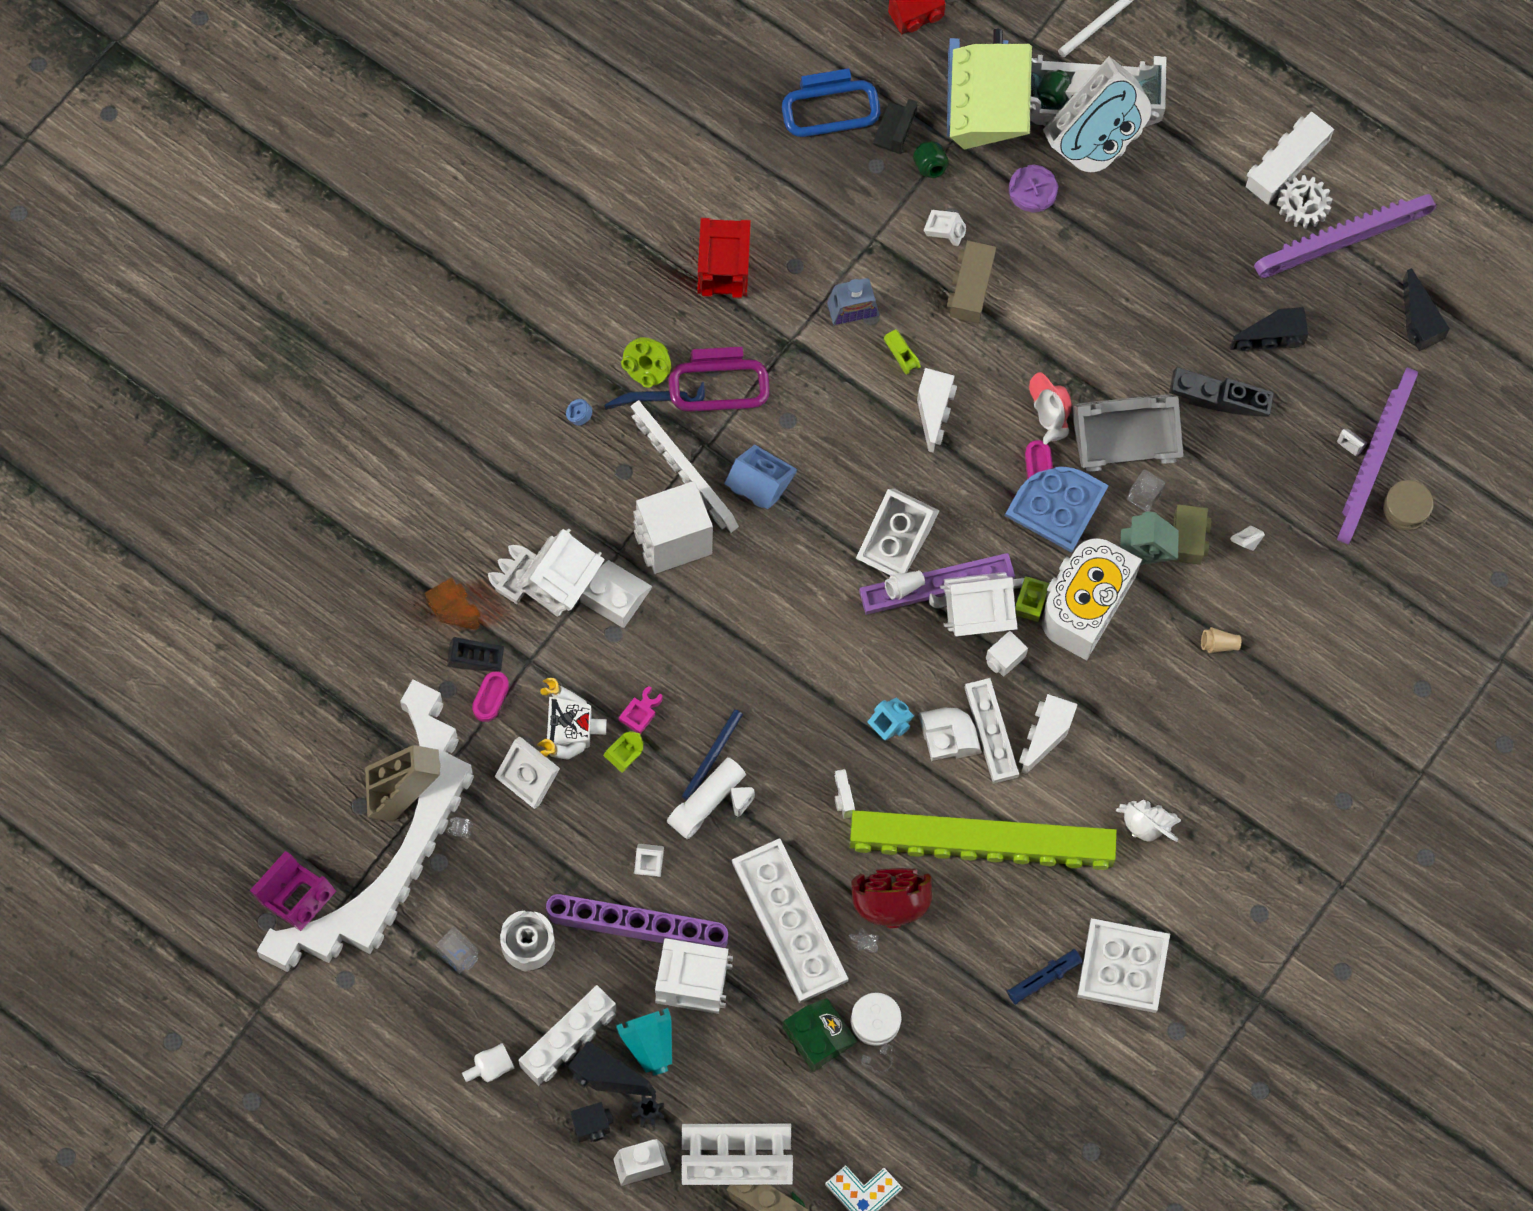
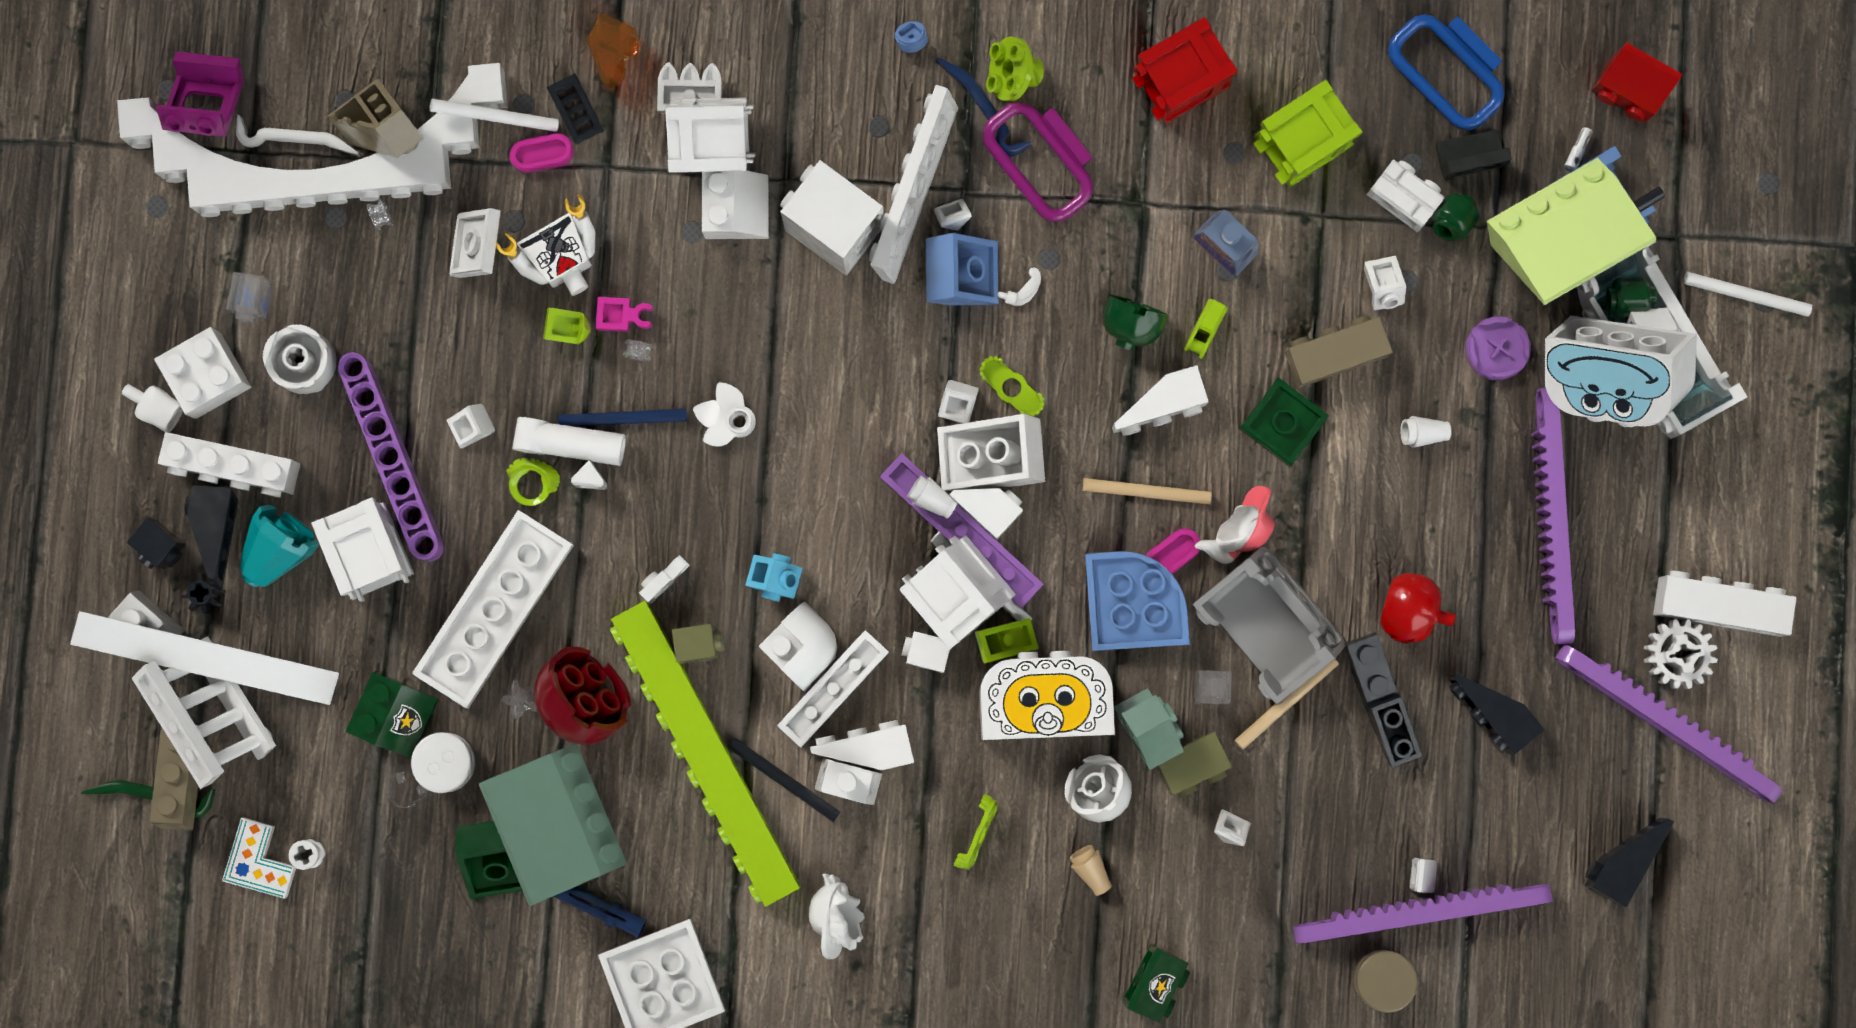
camera: 60 degrees right, 15 degrees up
(364, 851) = (287, 135): none -> white piece
(446, 705) = (494, 115): none -> white piece
(490, 1014) = (202, 373): none -> white brick
(673, 715) = (637, 350): none -> clear bush
(699, 1128) = (204, 658): none -> white sticker
(718, 459) = (953, 214): none -> white slope
(722, 828) = (549, 478): none -> lime piece
(753, 690) = (720, 415): none -> white plate
(802, 448) = (1026, 293): none -> white piece
(817, 210) = (1306, 134): none -> lime container
(844, 498) = (995, 373): none -> lime piece
(847, 534) = (958, 401): none -> white slope
(869, 391) = (1132, 322): none -> dark green cylinder
(873, 1152) = (300, 847): none -> white bush
(896, 179) = (1406, 194): none -> white brick
(905, 792) = (697, 643): none -> olive brick
(935, 64) = (1578, 149): none -> white pin
(935, 553) = (989, 508): none -> white slope
(966, 1023) = (484, 861): none -> dark green slope
(970, 961) = (552, 824): none -> sand green slope
(986, 454) = (1147, 491): none -> tan piece
(996, 343) = (1284, 422): none -> dark green tile
(1035, 801) = (784, 779): none -> black bar
(1058, 264) = (1424, 431): none -> white cone
(1063, 756) = (848, 781): none -> white torso
(1137, 679) = (990, 806): none -> lime piece
(1167, 220) = (1554, 519): none -> medium lavender gear
(1169, 599) = (1098, 789): none -> white cylinder
(1173, 336) = (1413, 608): none -> red piece
(1187, 468) = (1278, 710): none -> tan piece
(1321, 645) = (1156, 983): none -> dark green slope

